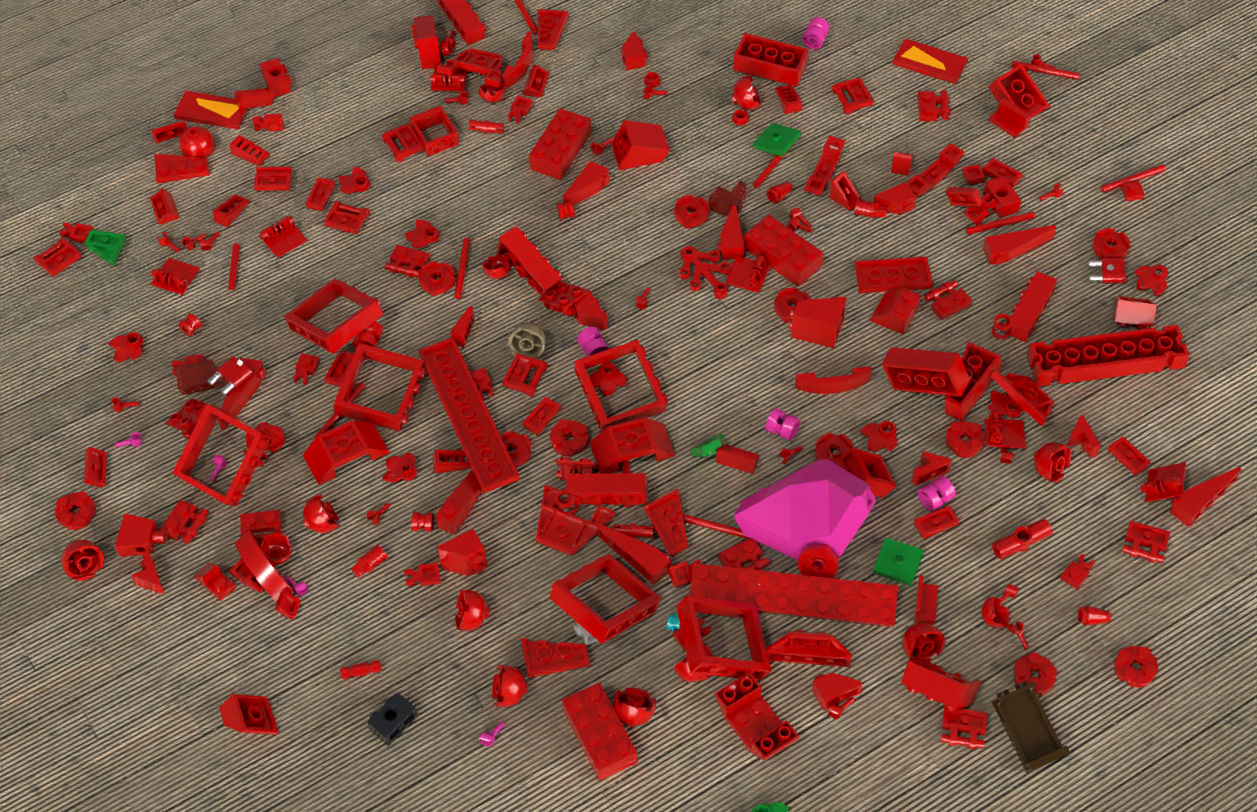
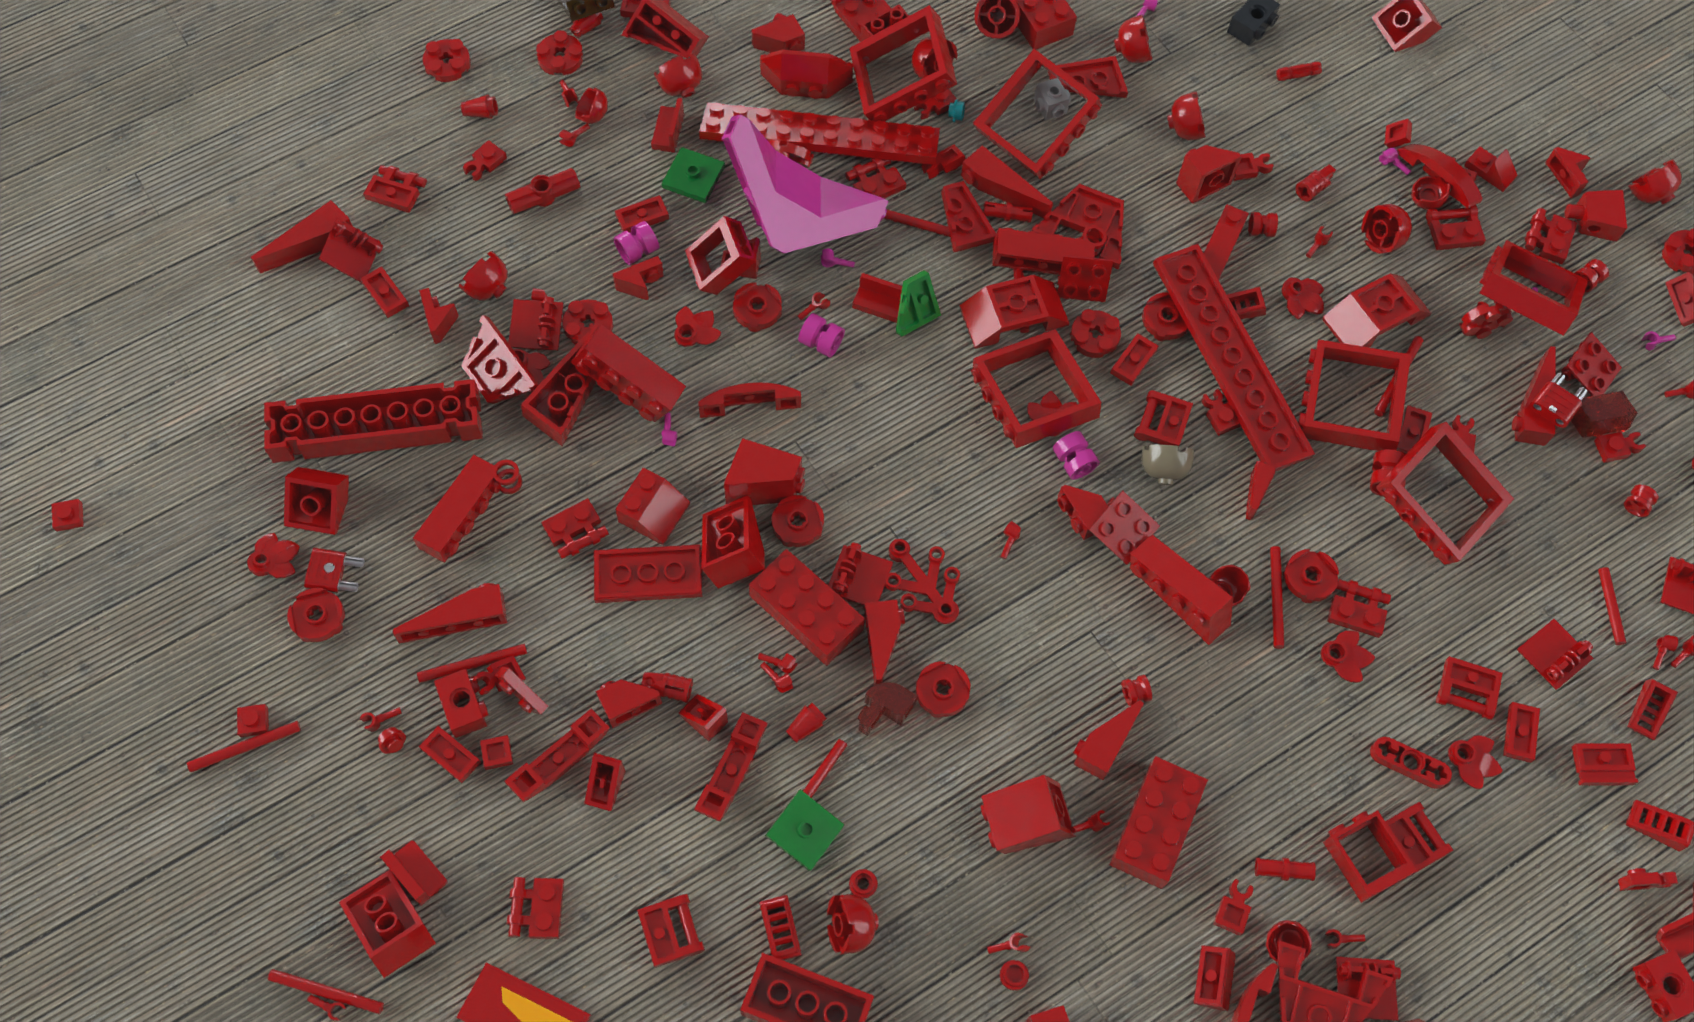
camera: 175 degrees right, 10 degrees up
(165, 484) = (1595, 272): none -> red wheel
(401, 185) = (1426, 778): none -> red beam
(838, 278) = (731, 543): none -> red slope
(1040, 178) = (391, 740): none -> red plate

